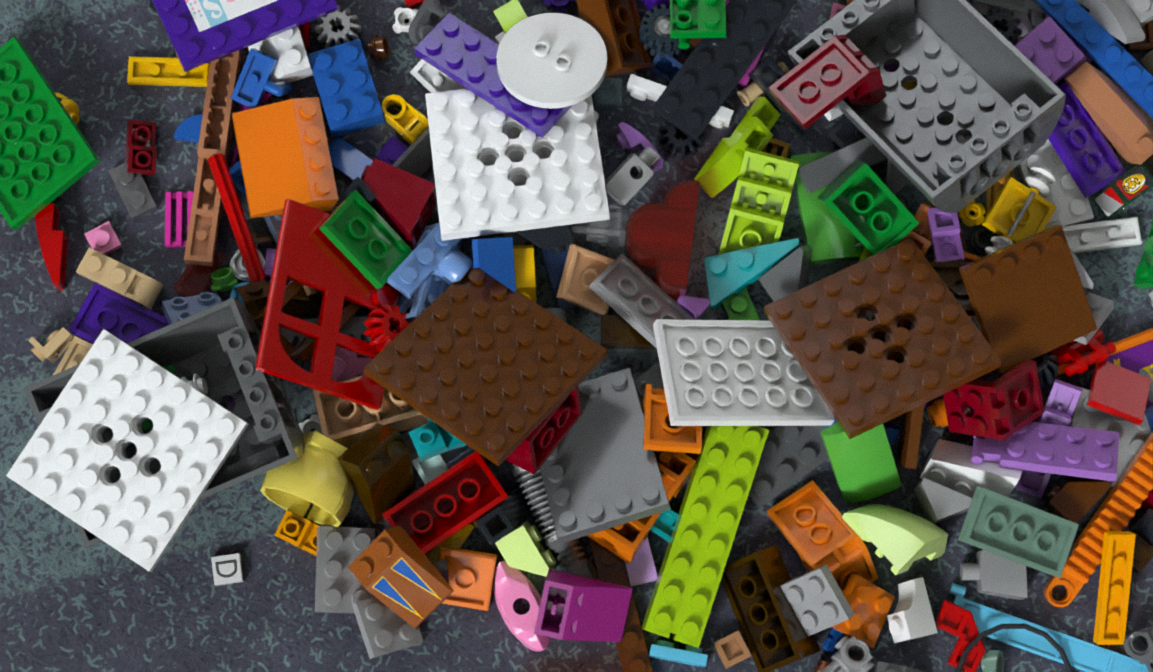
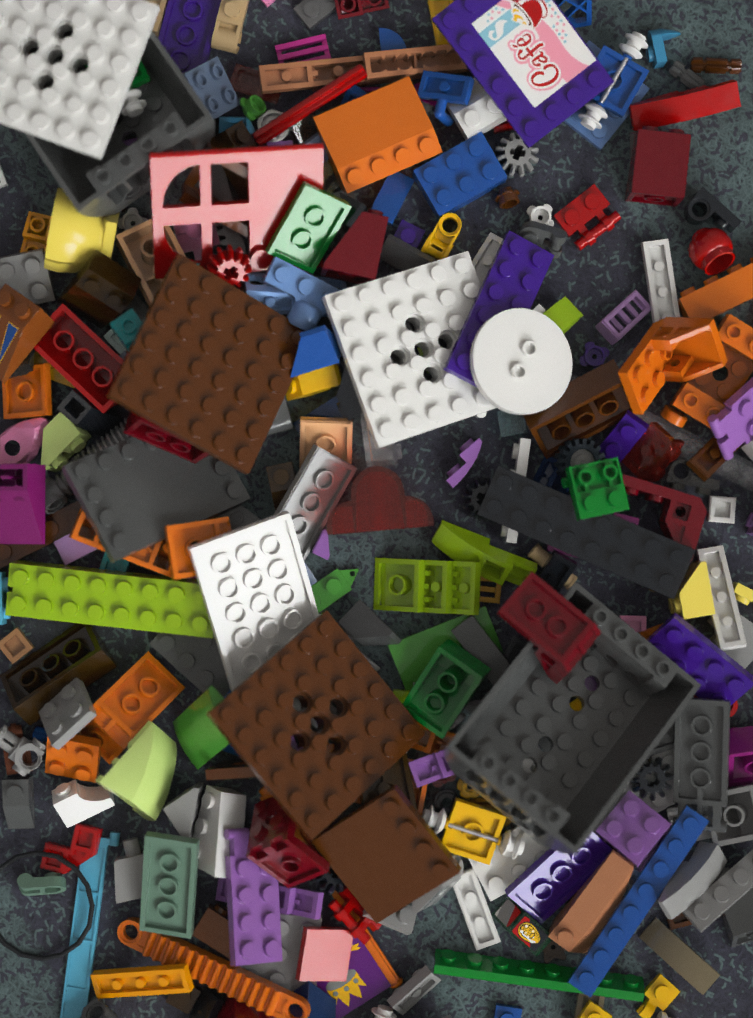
camera: 75 degrees right, 10 degrees up
(621, 184) = (419, 456): light grey torso -> none
(735, 270) = (364, 575): teal wing -> none

